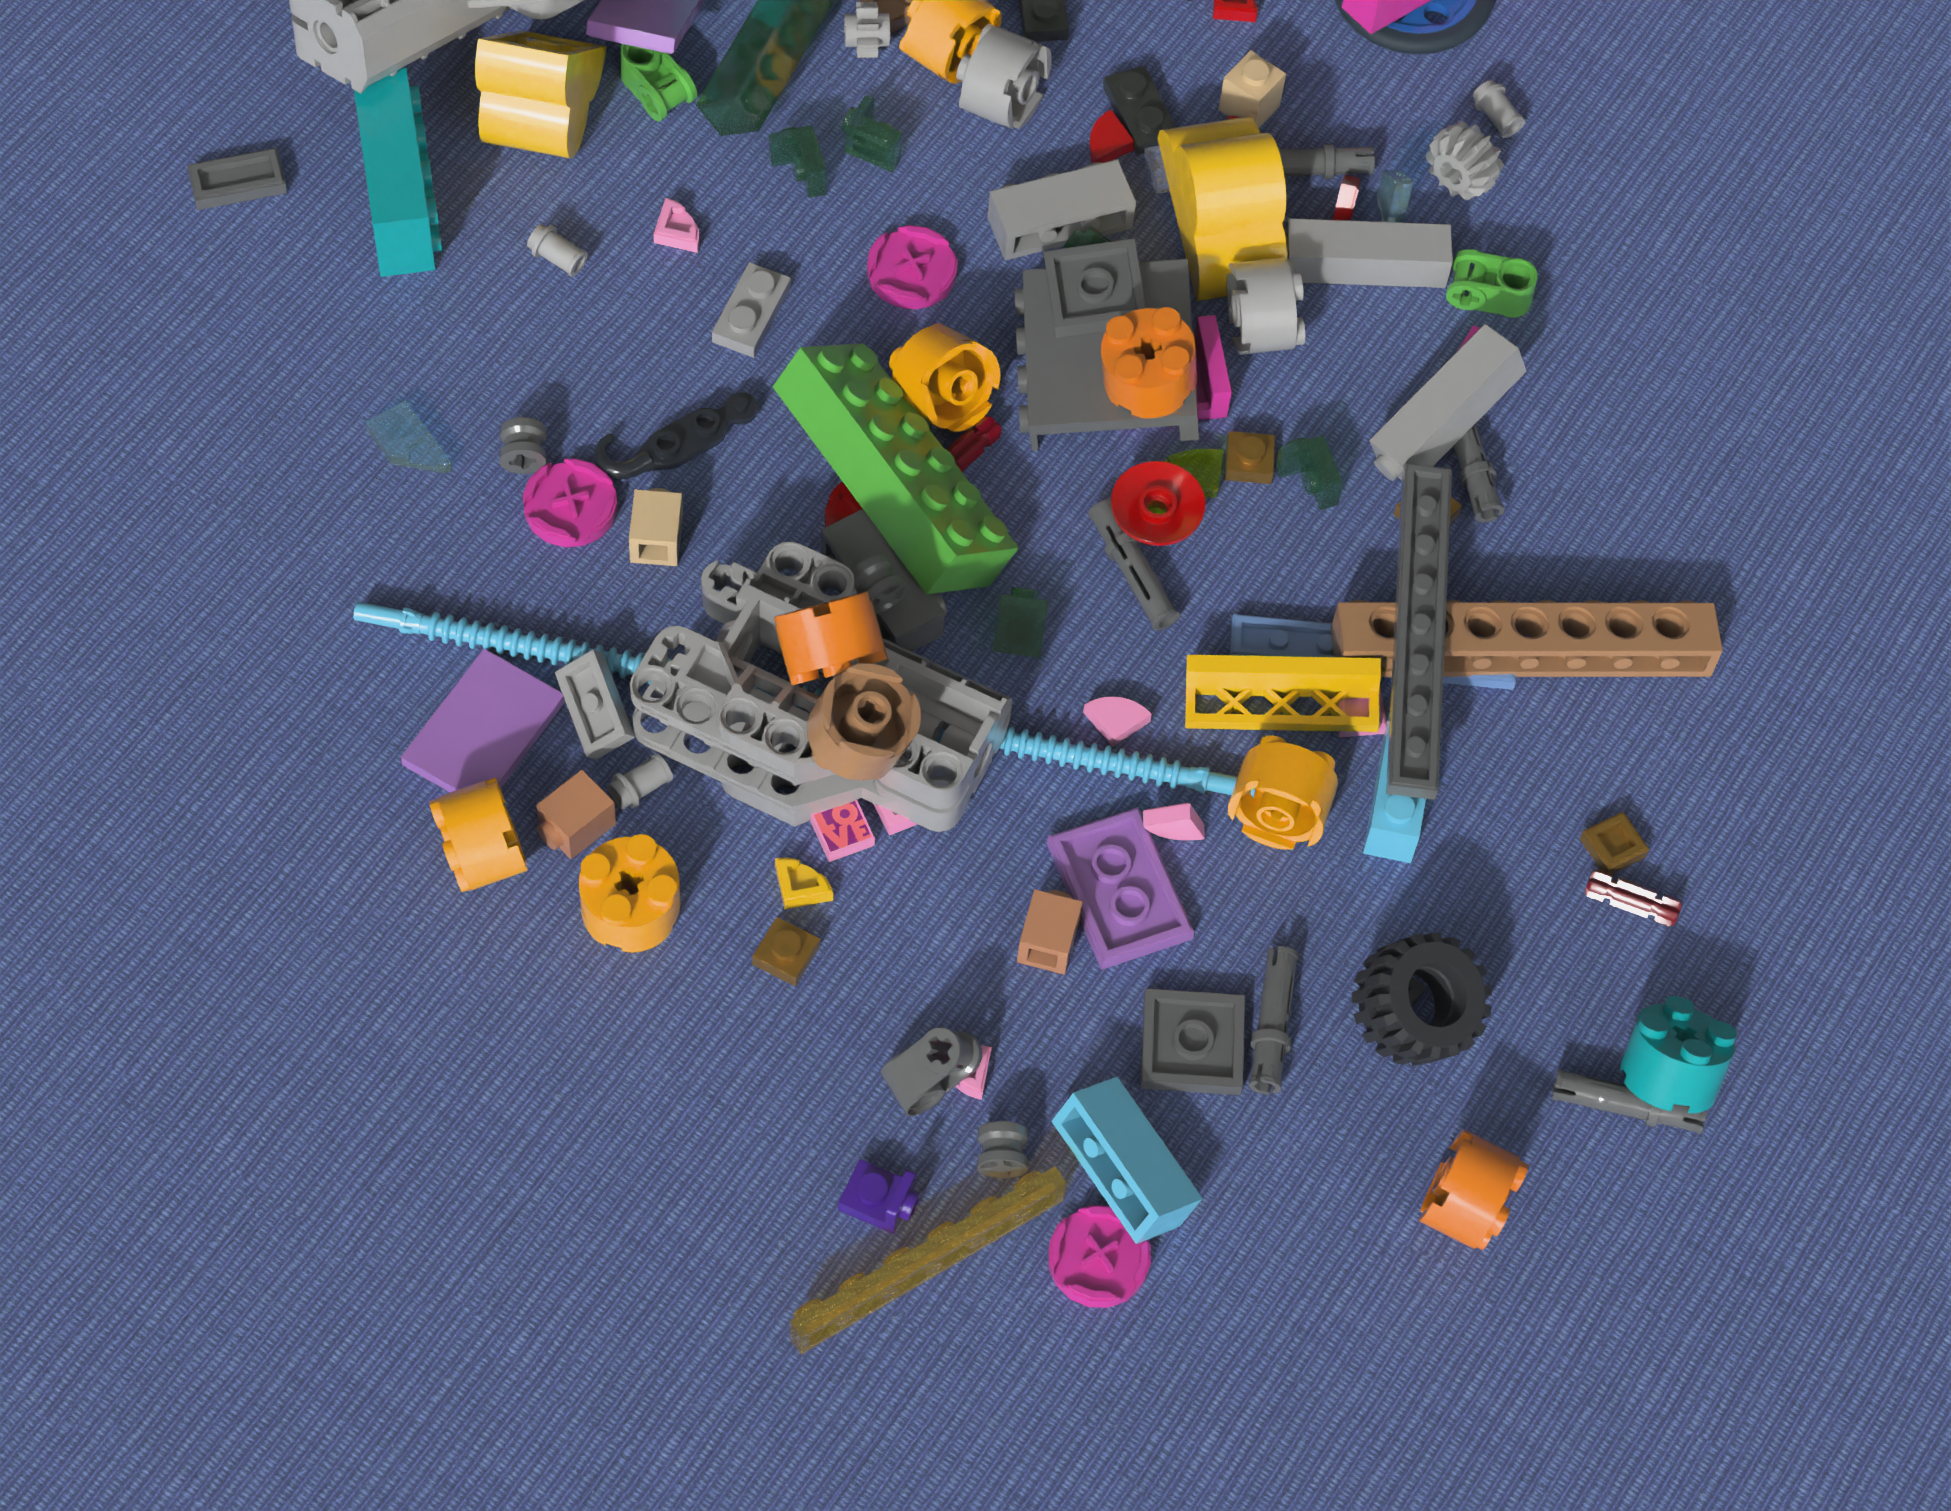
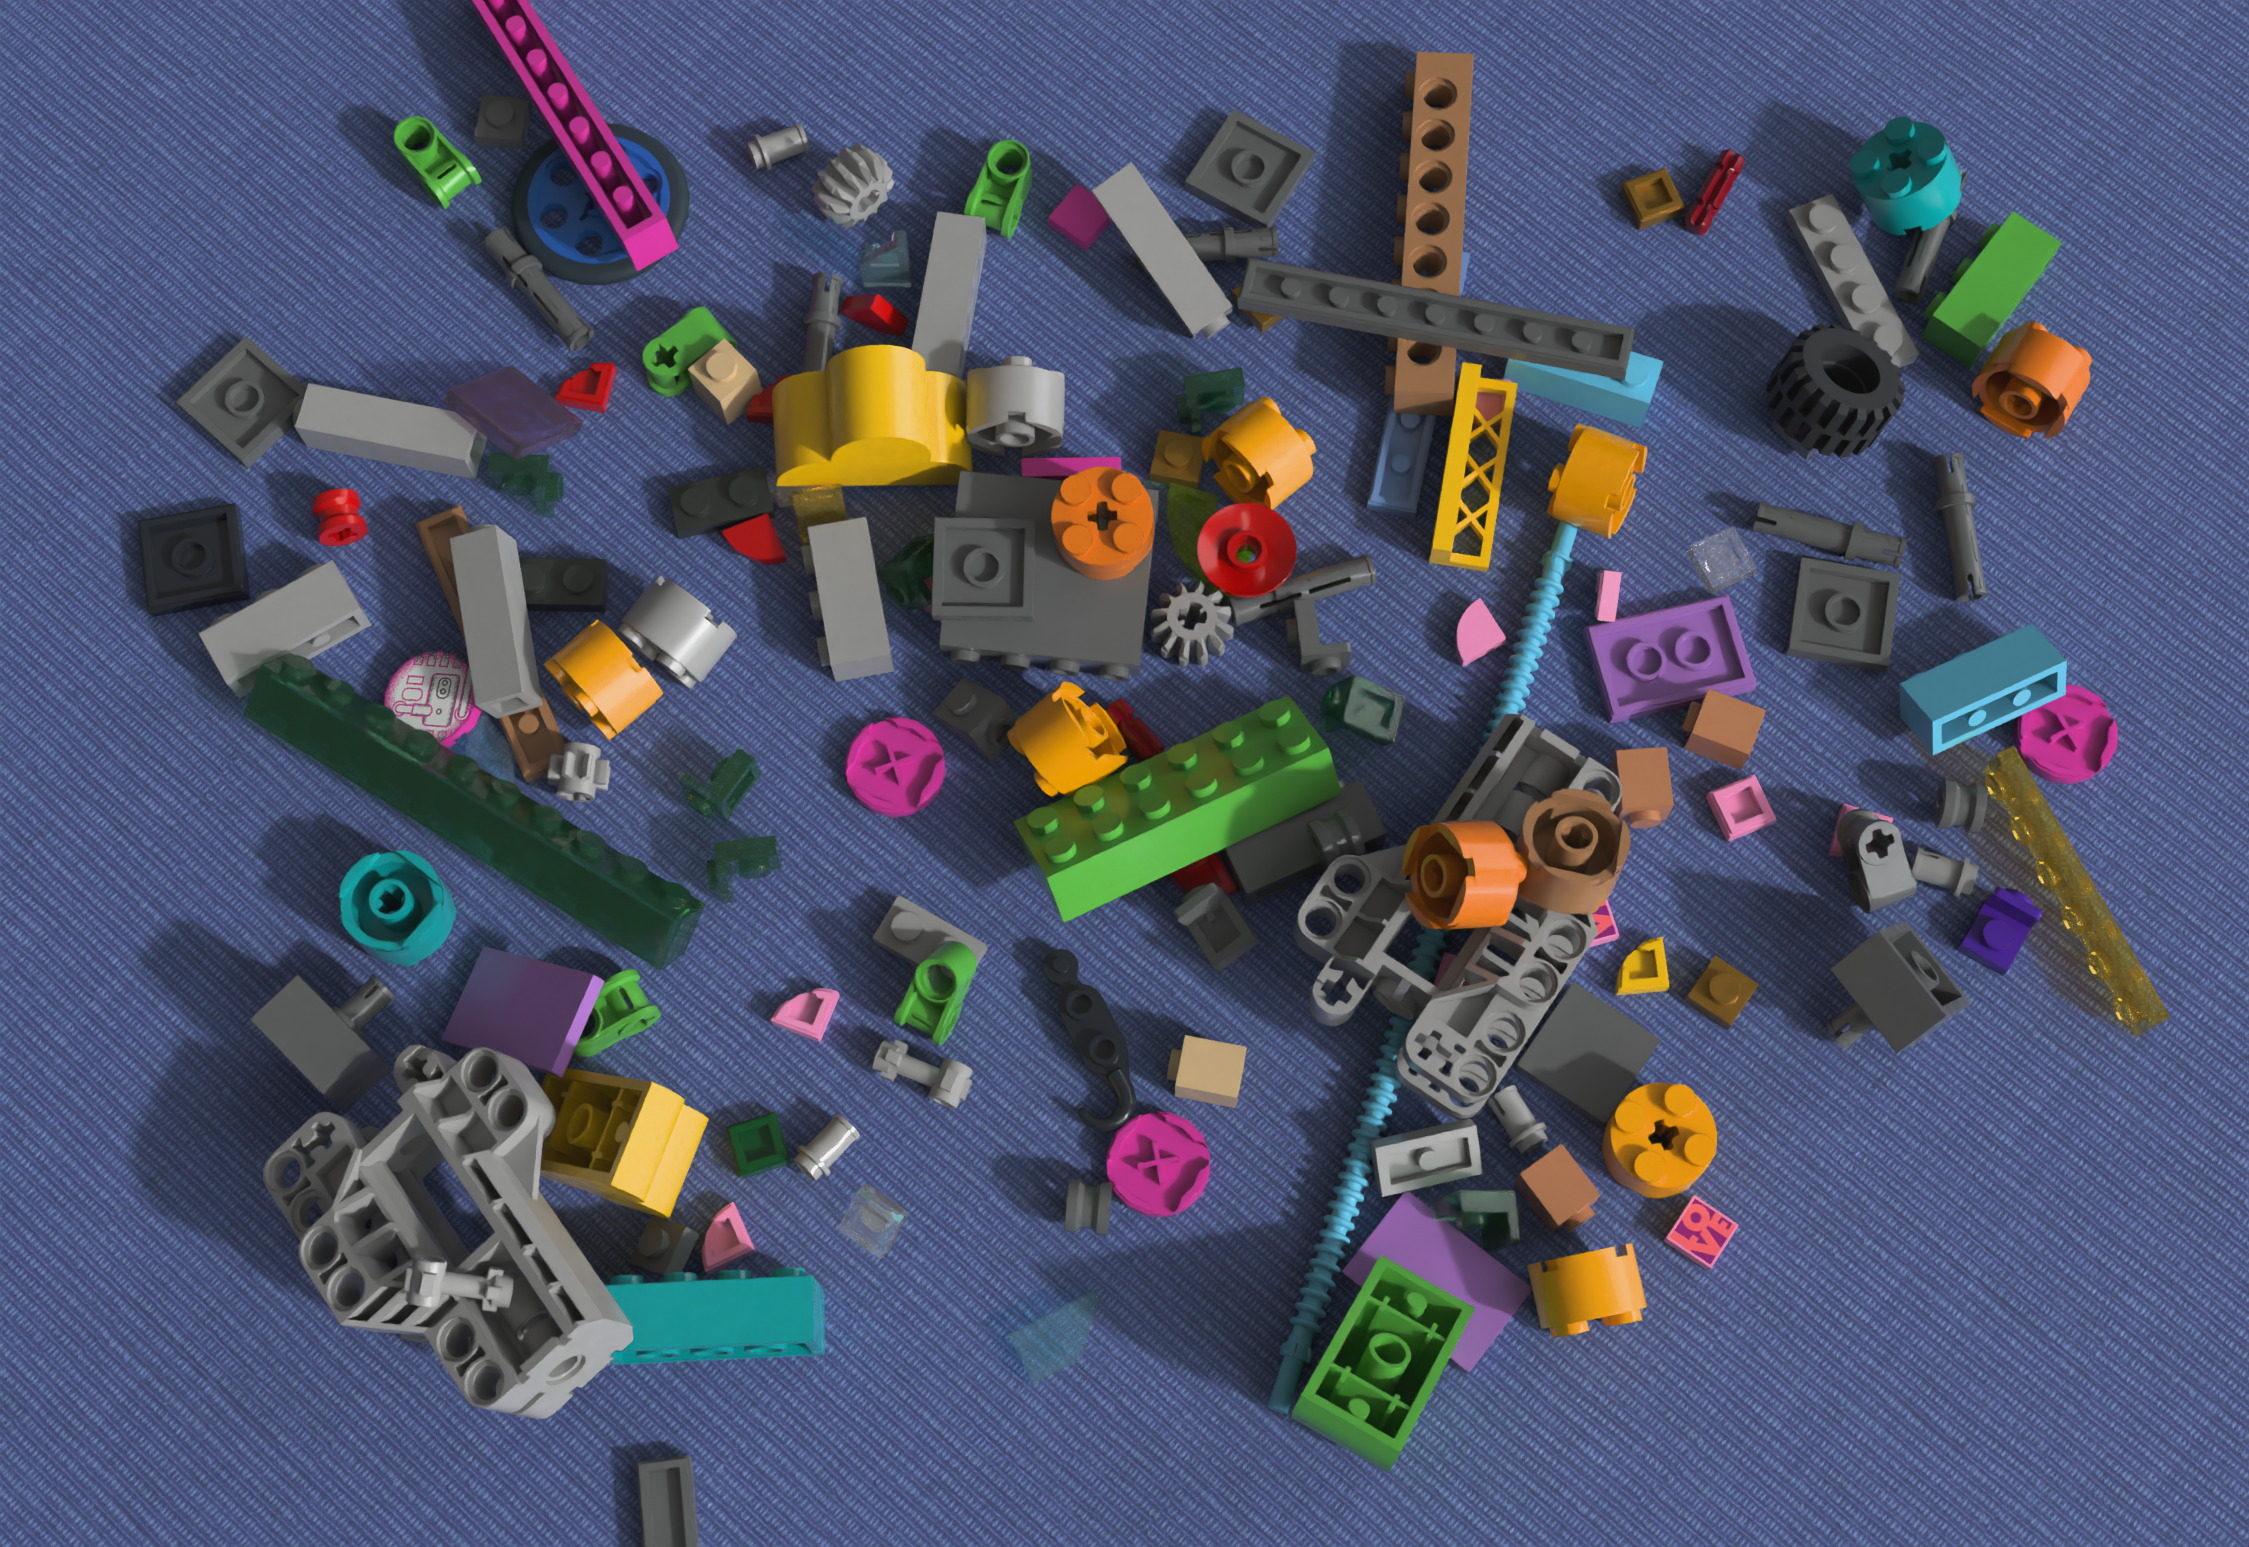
camera: 75 degrees left, 10 degrees up
(383, 657) = (1383, 1363): none -> bright green brick
(456, 142) = (663, 1247): none -> dark grey plate
(471, 192) = (726, 1240): none -> bright pink tile
(495, 288) = (873, 1221): none -> clear plate
(547, 741) = (1485, 1209): none -> bracket
(549, 946) = (1701, 1233): none -> tile
(556, 204) = (758, 1145): none -> dark green tile
(626, 332) = (948, 1083): none -> light grey bar
(702, 309) = (933, 998): none -> bright green piece
(715, 839) = (1587, 1054): none -> dark grey tile
(796, 519) = (1216, 924): none -> dark grey bracket
(799, 1082) = (1895, 989): none -> dark grey brick
(931, 1150) = (1945, 871): none -> light grey pin
(969, 312) = (978, 717): none -> dark grey bracket
(975, 959) = (1741, 808): none -> bright pink tile
(979, 861) = (1645, 786): none -> nougat brick
(1080, 474) = (1176, 614): none -> light grey gear
(1080, 571) = (1303, 633): none -> dark grey bracket
(1145, 177) = (818, 507): none -> clear yellow tile
(1228, 922) = (1721, 560): none -> clear plate
(1254, 505) = (1259, 455): none -> light orange brick
(1283, 52) = (680, 349): none -> bright green piece
(1312, 1140) = (1956, 508): none -> dark grey pin
(1555, 1034) = (1849, 277): none -> light grey plate
(1563, 490) = (1249, 171): none -> dark grey tile
(1579, 1158) = (1989, 288): none -> bright green brick

